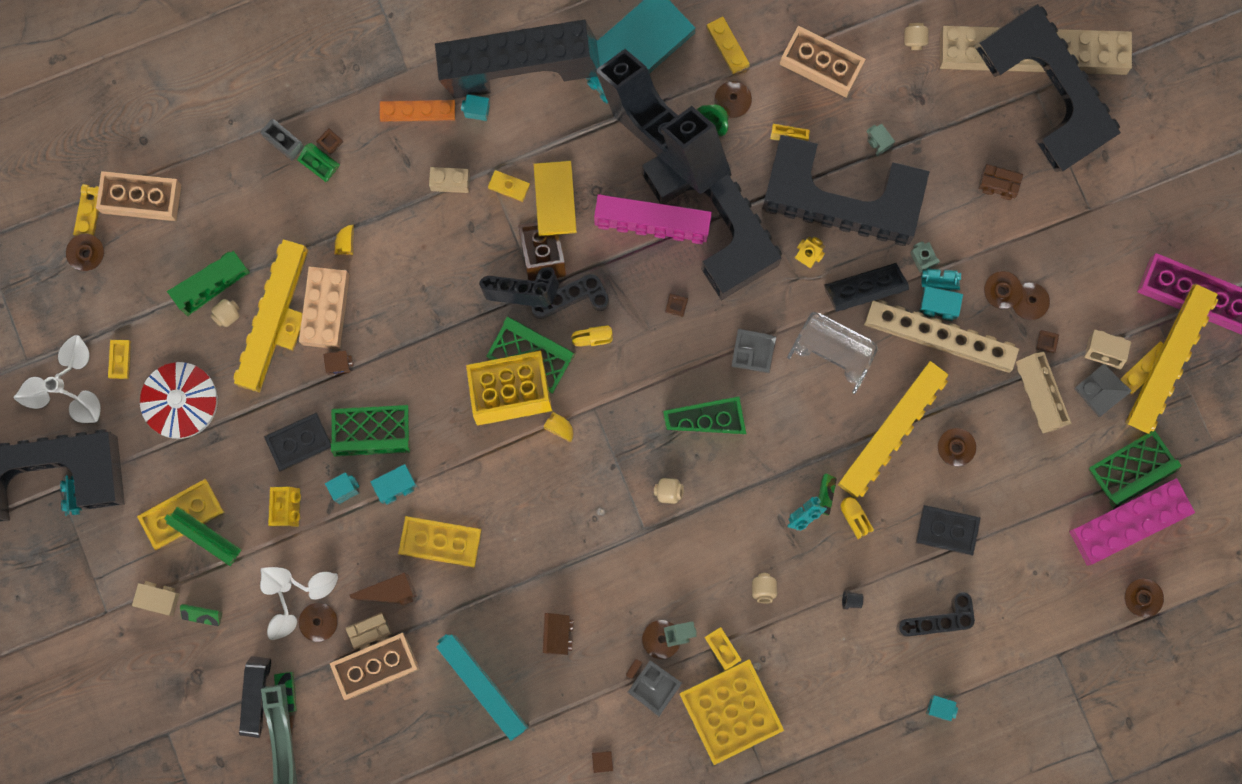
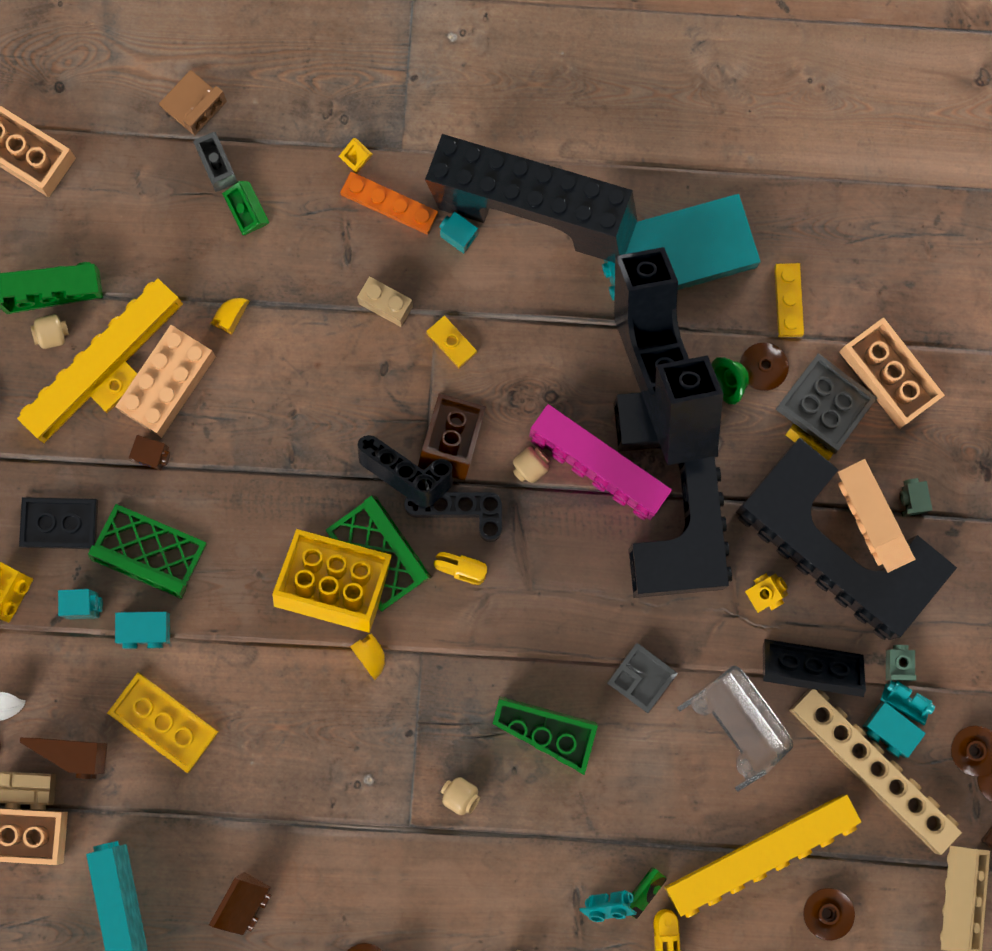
camera: 20 degrees right, 0 degrees up
(244, 106) = (193, 102): none -> medium nougat bracket
(329, 141) = (270, 190): reddish brown tile -> none
(377, 88) = (355, 155): none -> yellow tile
(555, 198) = (497, 382): yellow tile -> none
(606, 243) = (531, 464): none -> tan head
(676, 305) = (578, 577): reddish brown tile -> none
(788, 103) = (826, 403): none -> dark grey plate
(857, 163) = (874, 517): none -> light nougat brick

